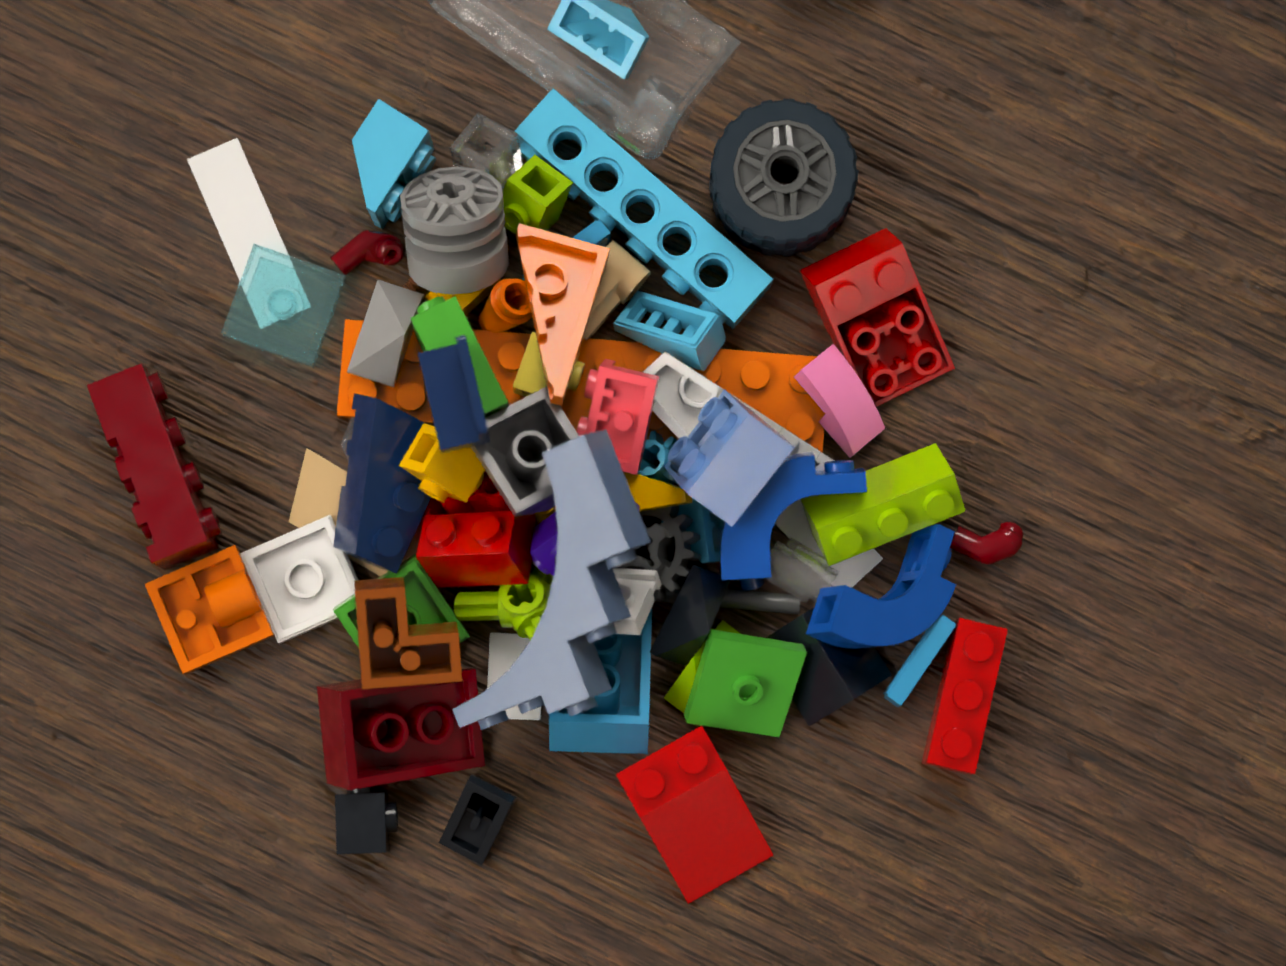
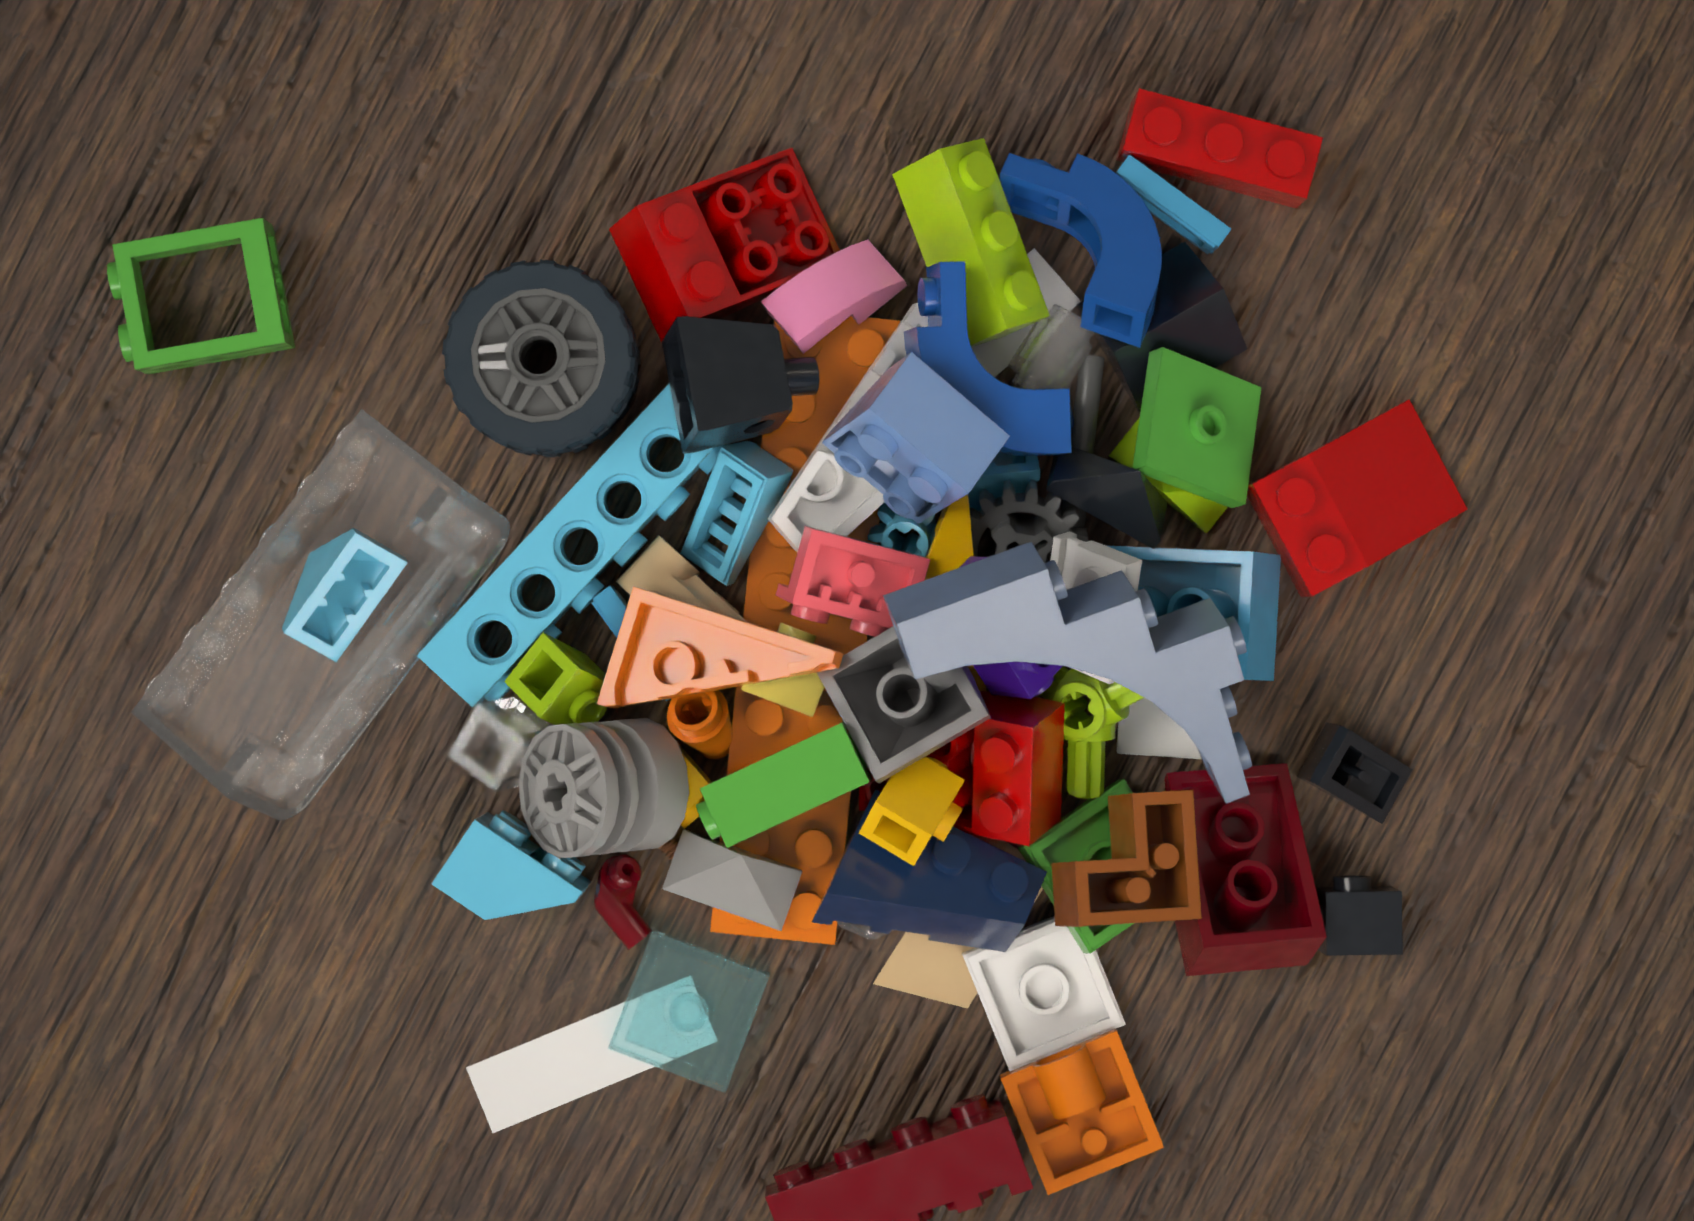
camera: 85 degrees left, 5 degrees up
(454, 396) = (835, 792): dark blue panel -> none
(770, 320) = (731, 380): none -> black torso
(991, 547) = (1025, 106): dark red arm -> none

